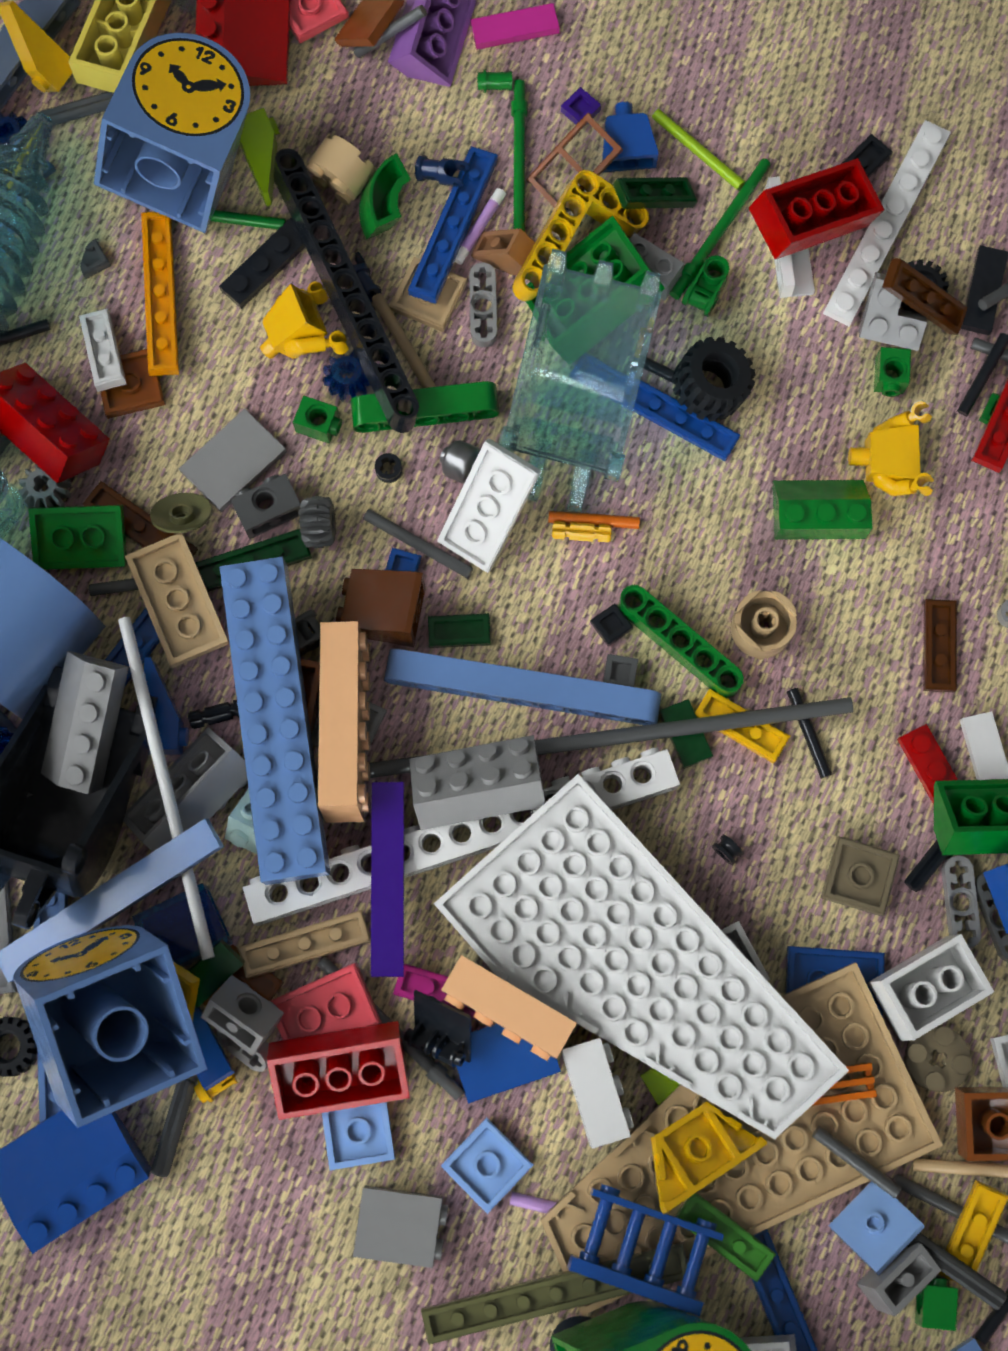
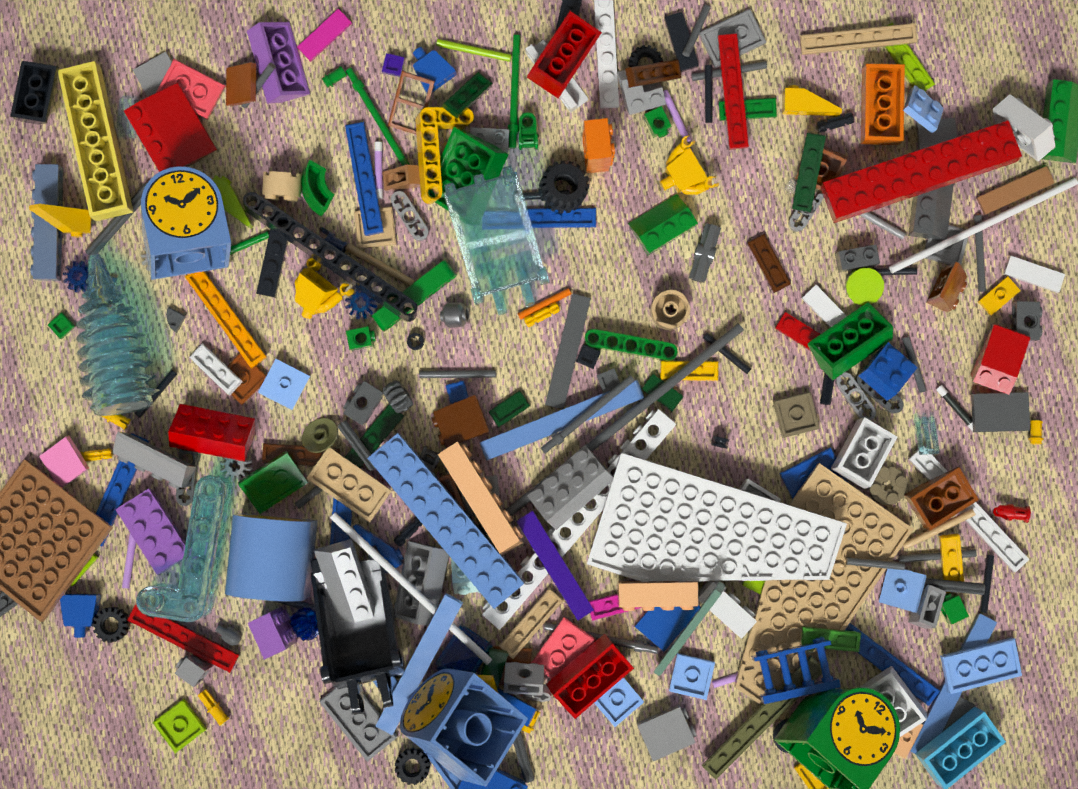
camera: 30 degrees left, 10 degrees up
(178, 420) = (283, 384): none -> light blue plate
(221, 546) = (356, 443): none -> dark grey axle
(232, 459) = (327, 388): light grey tile -> none
(440, 170) = (337, 152): dark blue piece -> none
(440, 1030) = (629, 625): black hinge -> none
(488, 505) = (486, 334): white tile -> none
(501, 704) = (558, 438): none -> dark grey bar
(525, 1086) = (690, 627): none -> sand green tile
(587, 601) = (568, 351): none -> dark grey tile
(698, 1152) = (794, 607): yellow wing -> none
(794, 342) = (597, 145): none -> orange brick
(857, 578) = (705, 253): none -> dark grey piece
(867, 1080) = (858, 520): orange tile -> none
(922, 374) = (675, 115): none -> lavender bar

